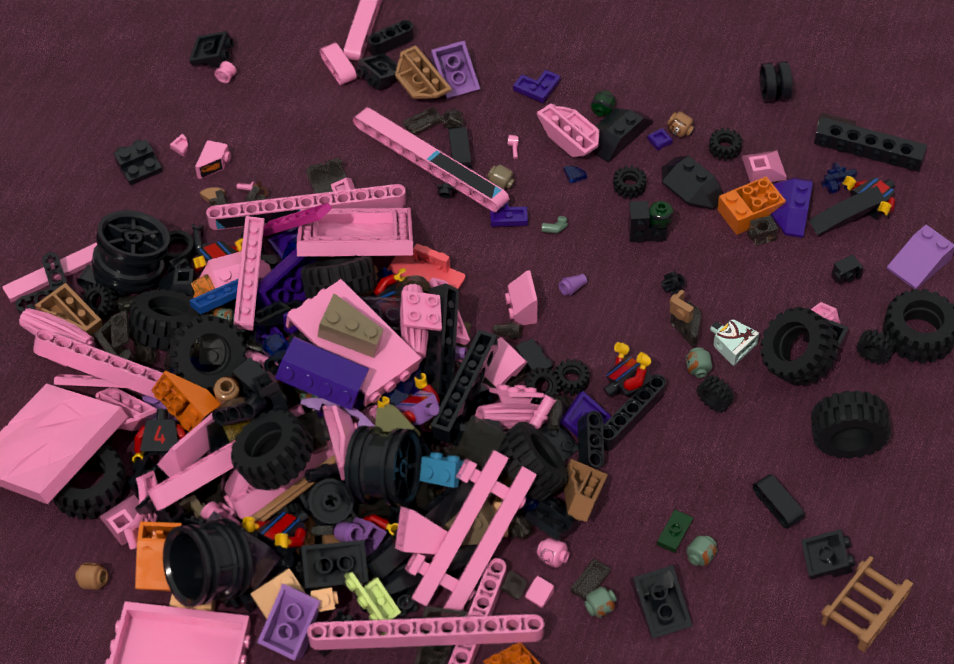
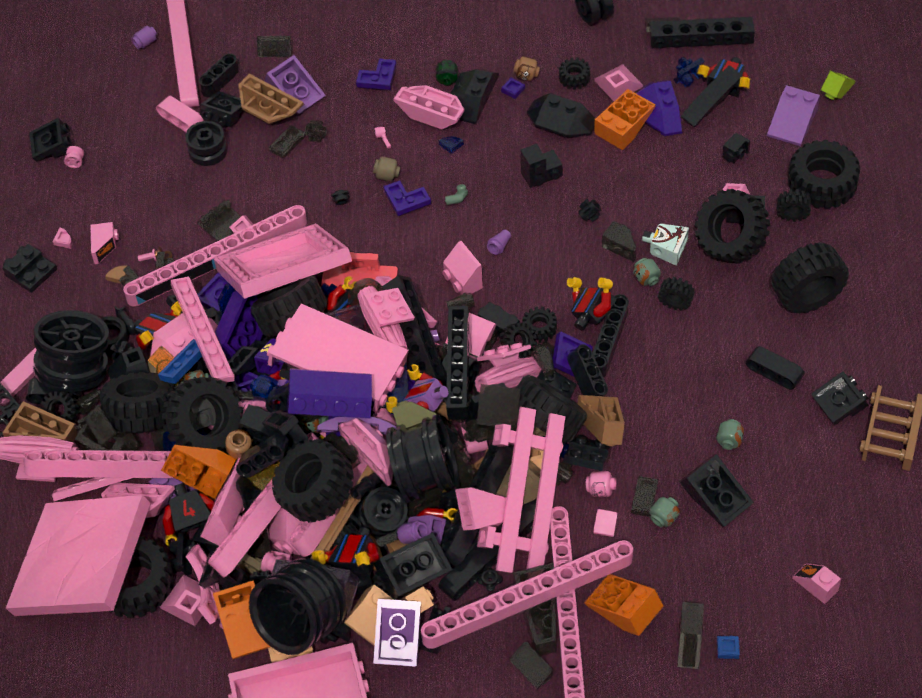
camera: 20 degrees left, 0 degrees up
(91, 576) = (181, 663): medium nougat head -> none
(296, 219) = (224, 265): dark pink tile -> none
(347, 97) = (206, 143): none -> black wheel
(349, 328) = (334, 344): dark tan wedge -> none
(373, 598) = (462, 582): yellowish green bracket -> none
(431, 159) = (313, 173): bright pink beam -> none
(440, 469) = (473, 444): dark azure bracket -> none
(455, 26) = (274, 46): none -> clear smoke slope
(459, 145) = (334, 155): black beam -> none
(513, 585) = (579, 525): clear smoke plate -> none
(541, 413) = (535, 361): bright pink pin -> none
(629, 174) = (505, 127): black tyre -> none
(661, 214) = (553, 151): dark green head -> none
(675, 531) = (697, 426): dark green plate -> none
(680, 308) = (611, 229): medium nougat bracket -> none
(762, 230) = (645, 138): clear smoke brick -> none

